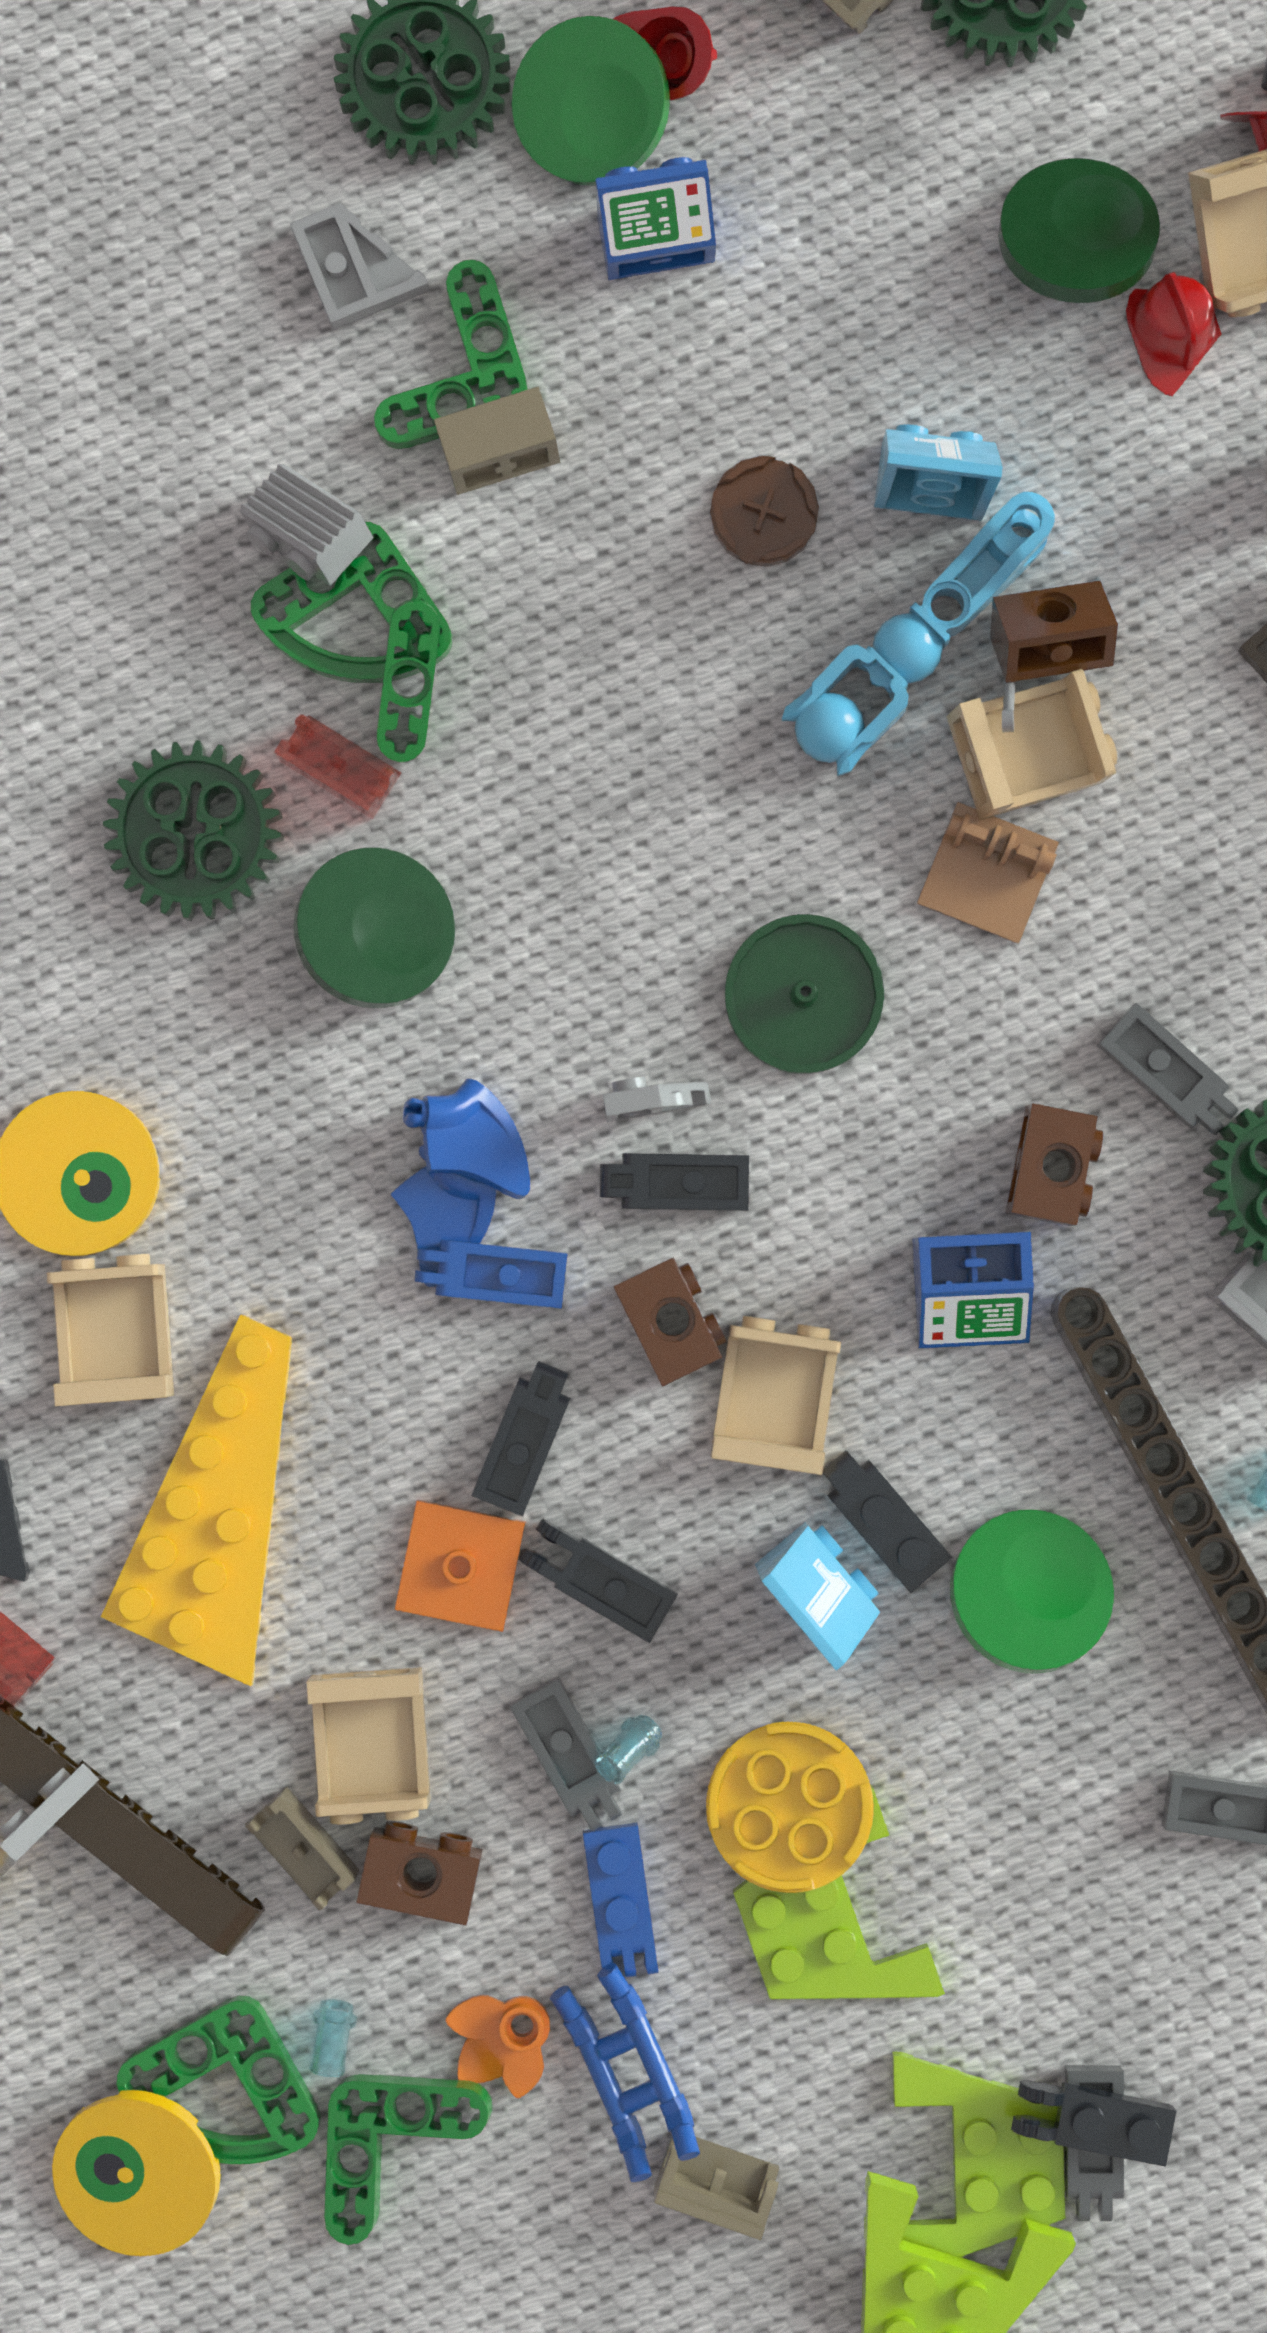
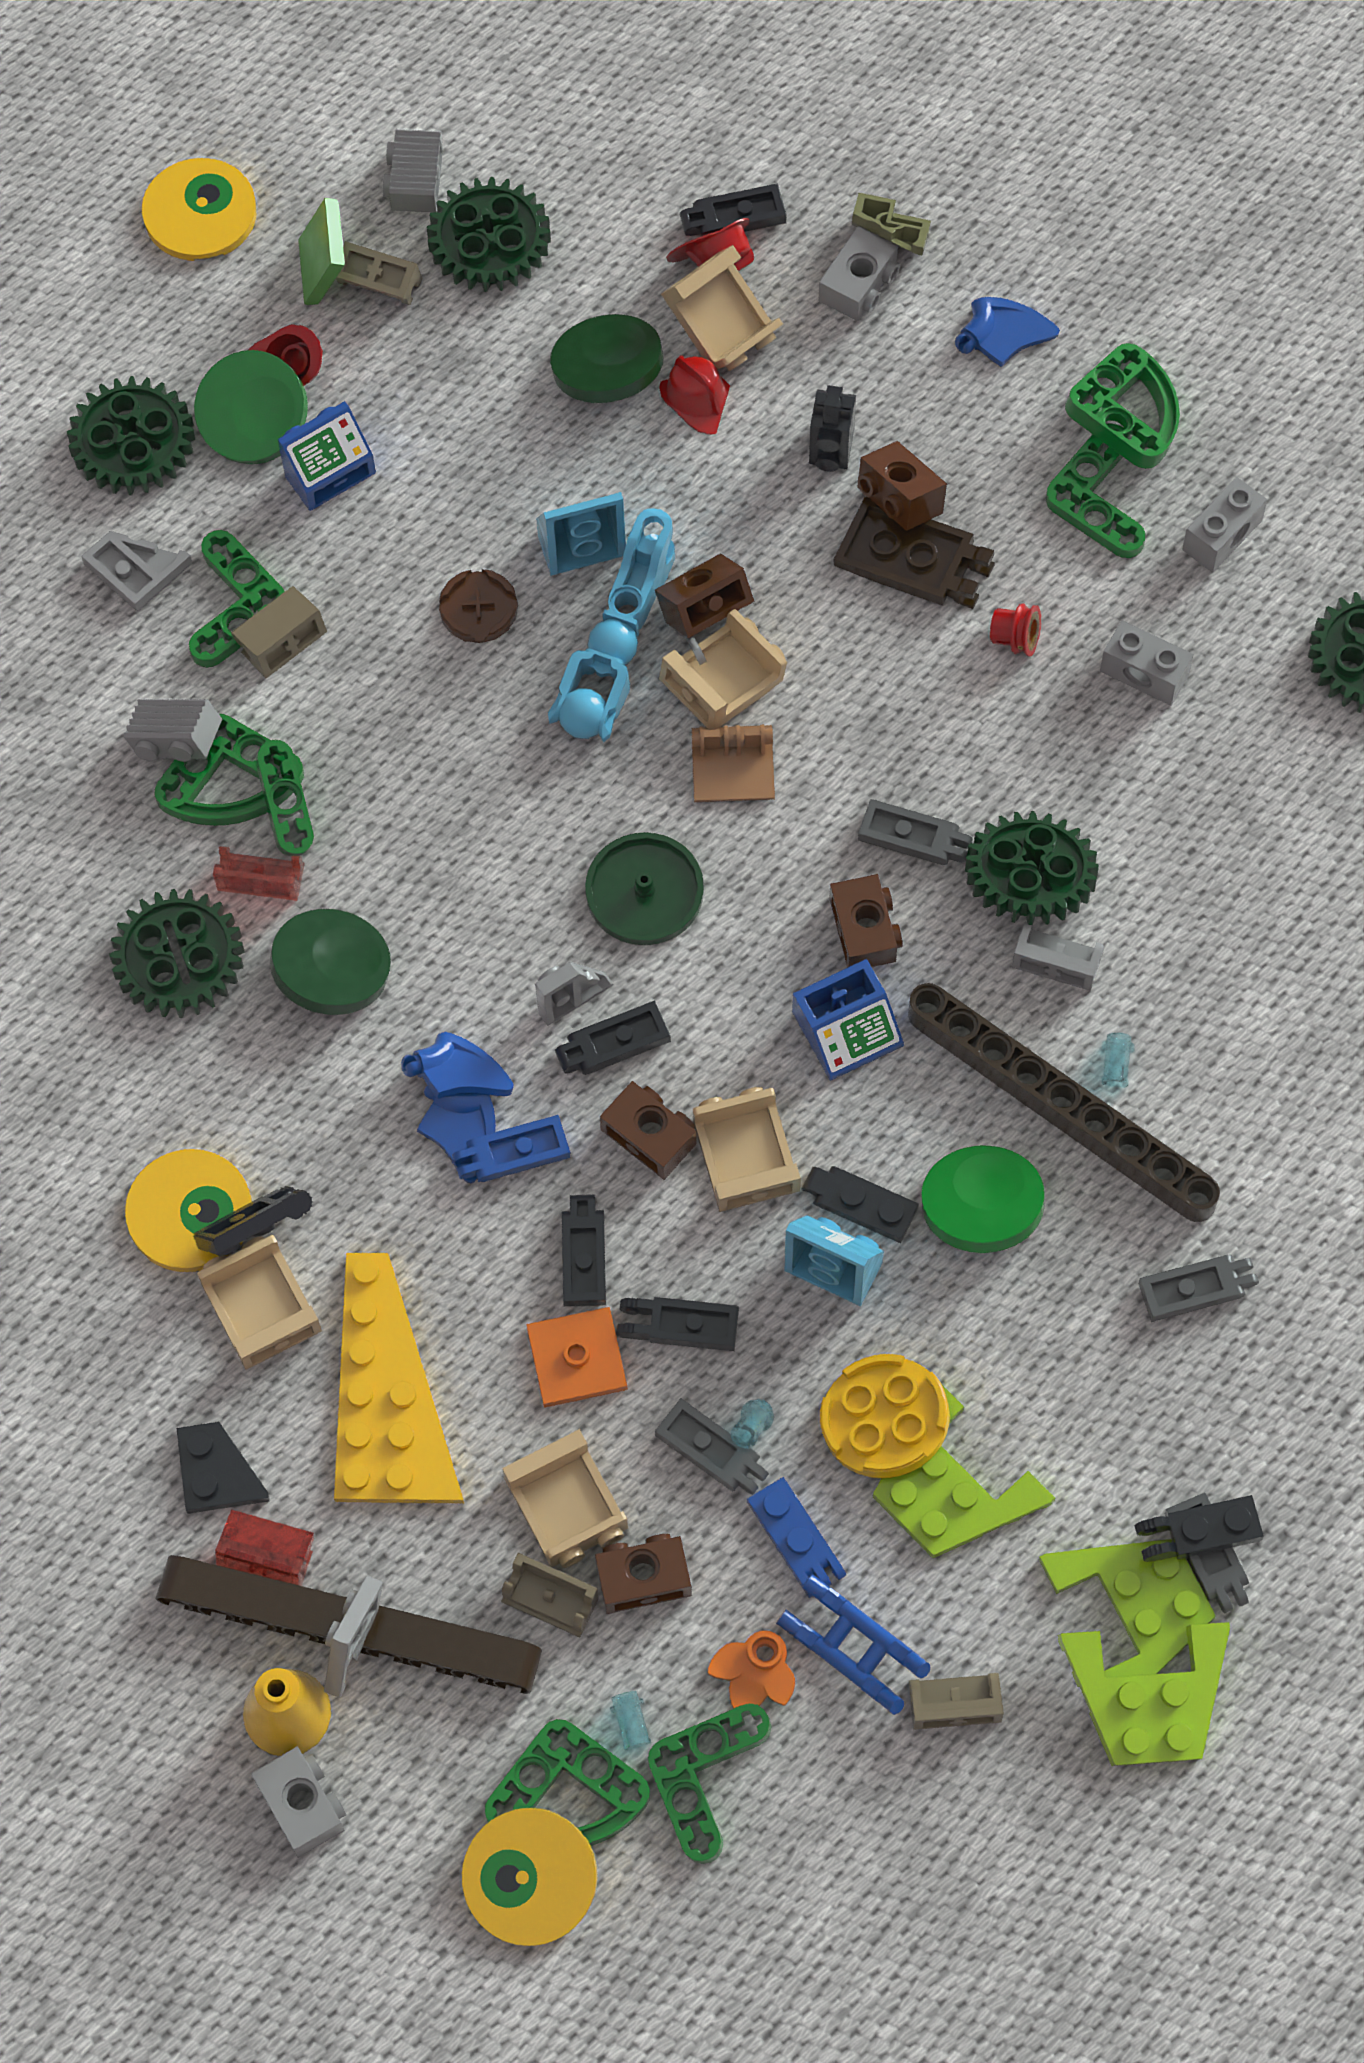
camera: 25 degrees left, 20 degrees down
(141, 1232) = (252, 1220): none -> black hinge

